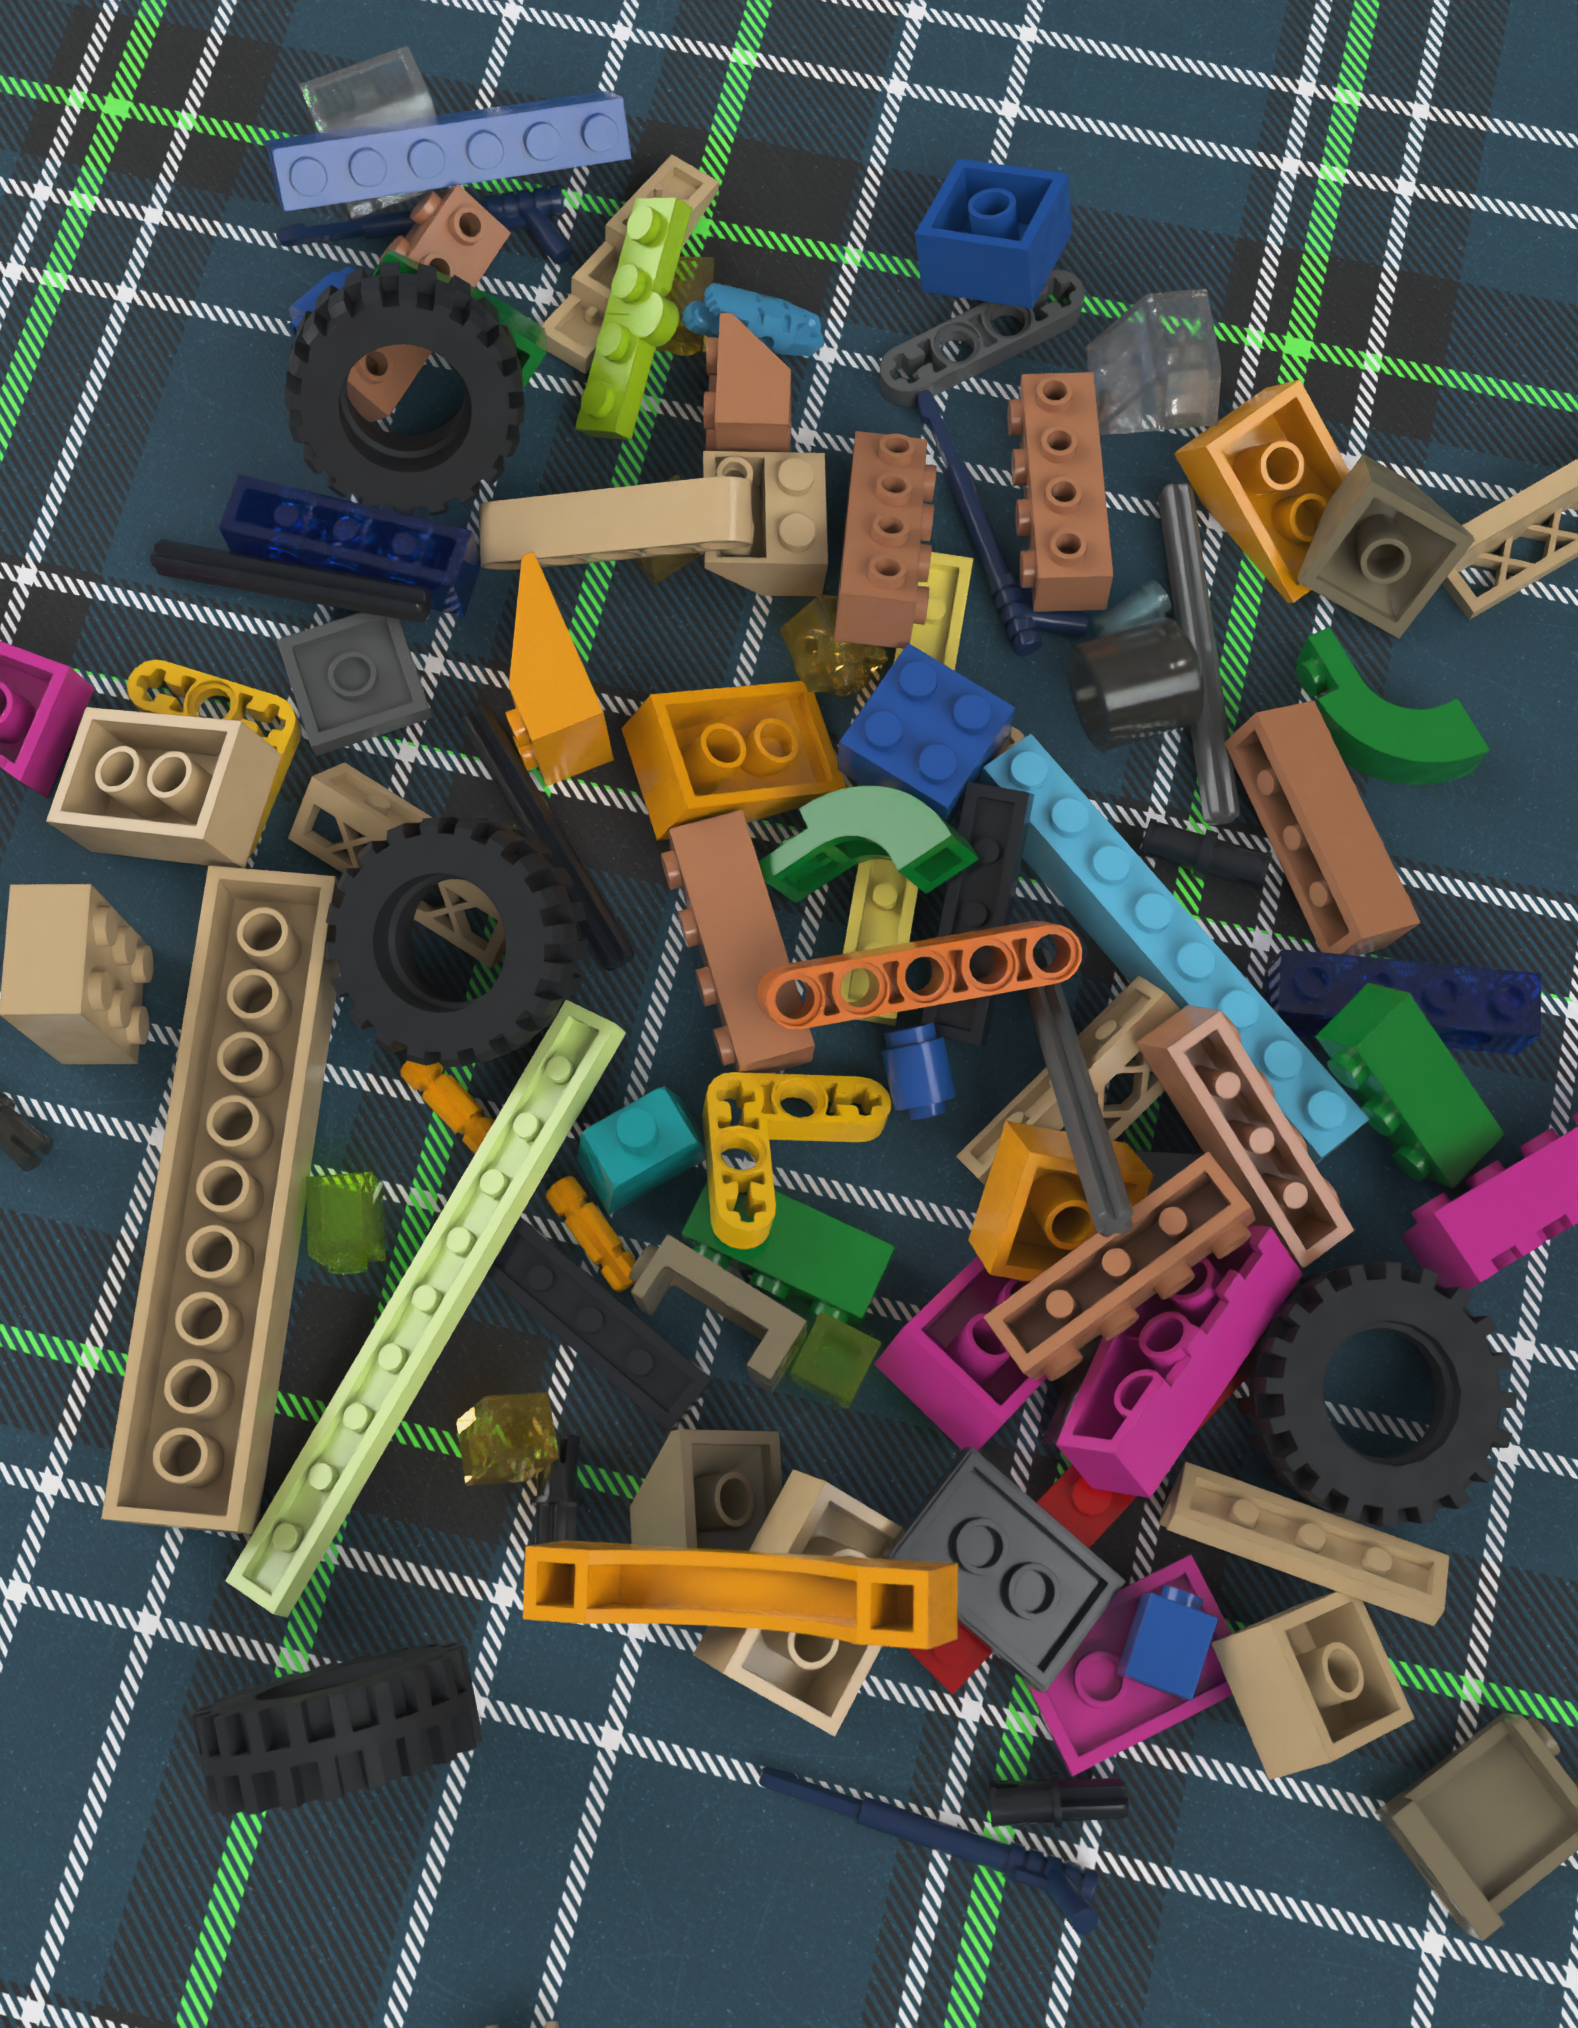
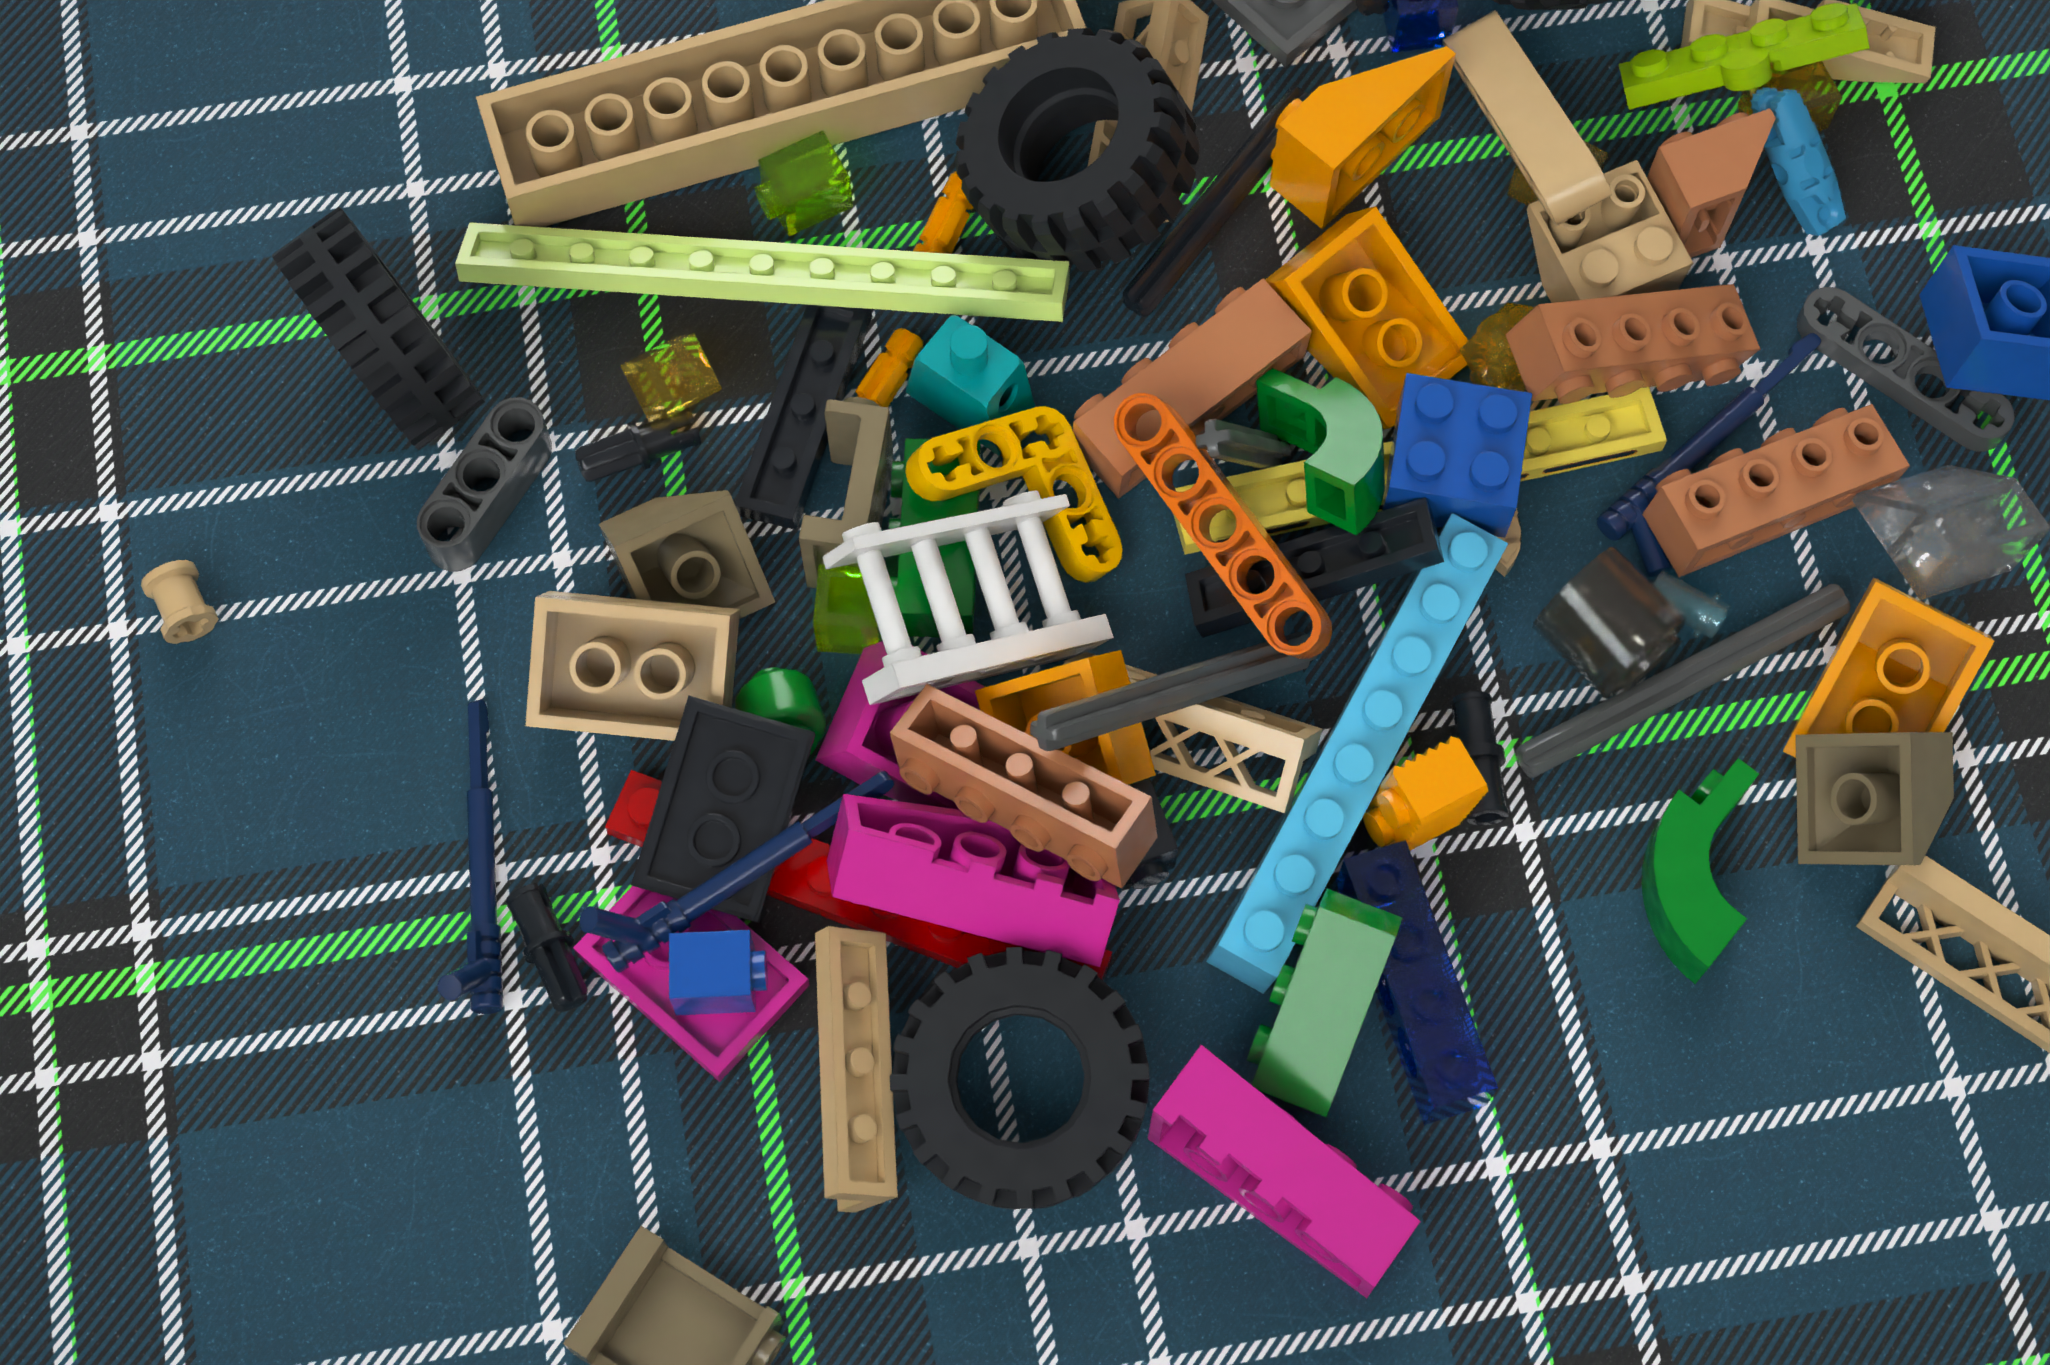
camera: 65 degrees right, 5 degrees down
(501, 1661) = (485, 456): none -> dark grey beam
(795, 1593) = (617, 606): light orange arch -> none
(838, 921) = (1242, 445): none -> dark grey axle
(903, 1469) = (784, 697): none -> green head
(918, 1071) = (1146, 581): blue brick -> none
(949, 1218) = (959, 655): none -> white fence
(1104, 1716) = (648, 930): none -> dark blue piece
(1244, 1129) = (1204, 866): nougat brick -> none
(1248, 910) = (1425, 796): none -> light orange brick
(1312, 1683) = (732, 1110): tan brick -> none
(1325, 834) = (1549, 846): nougat brick -> none

